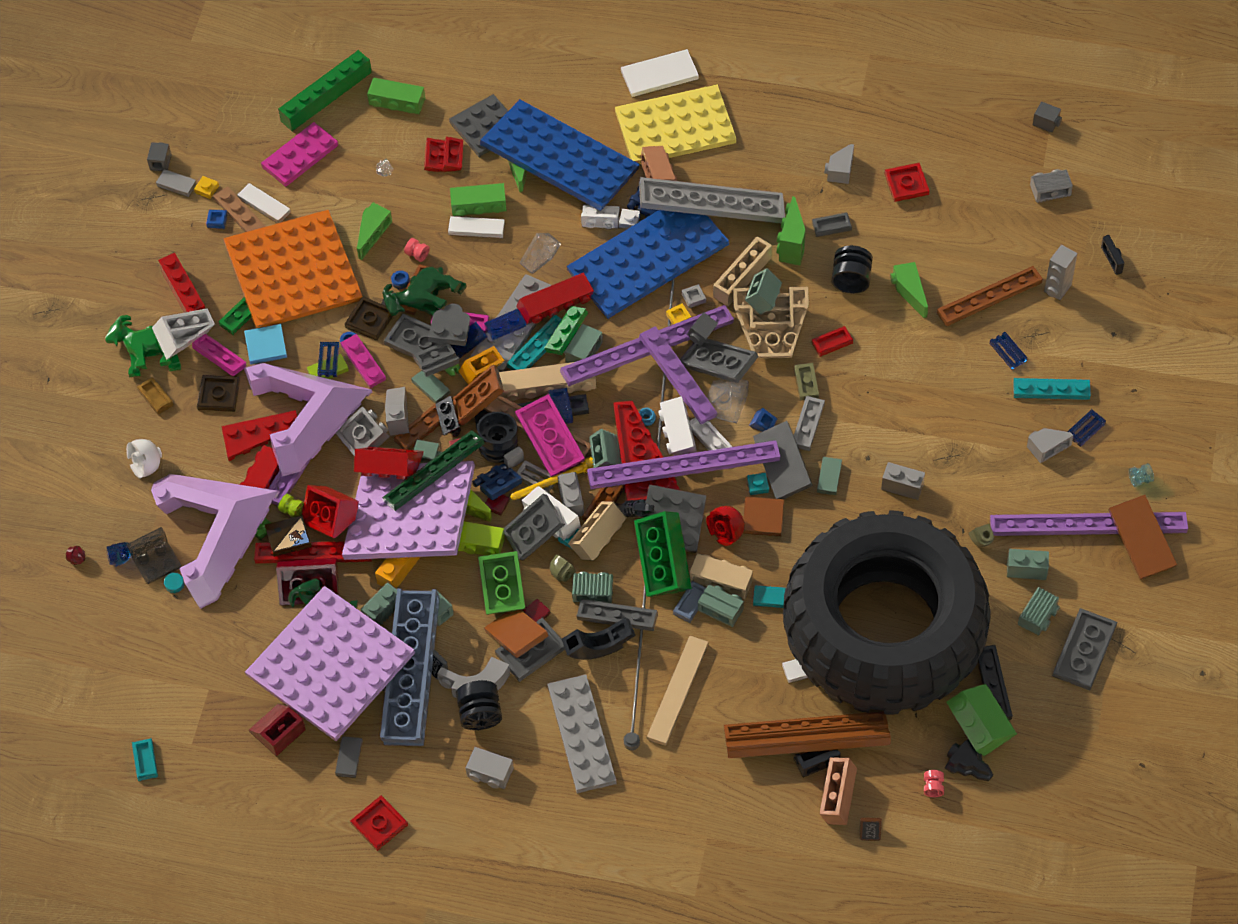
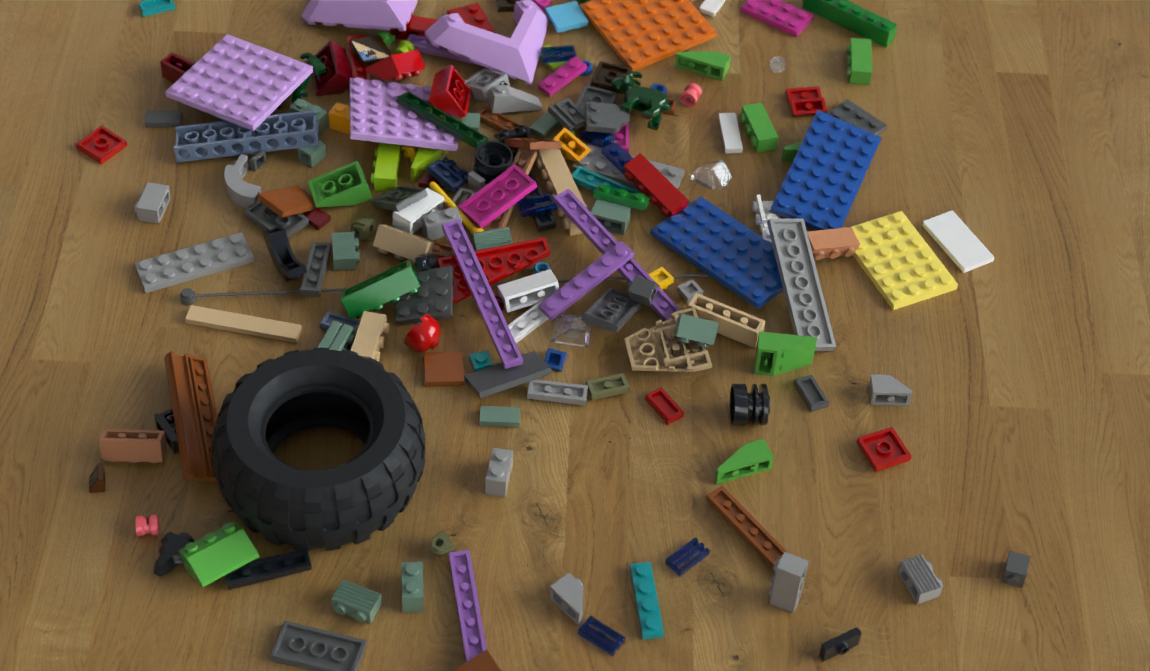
camera: 75 degrees right, 10 degrees down
(479, 705) = (209, 183): black wheel -> none

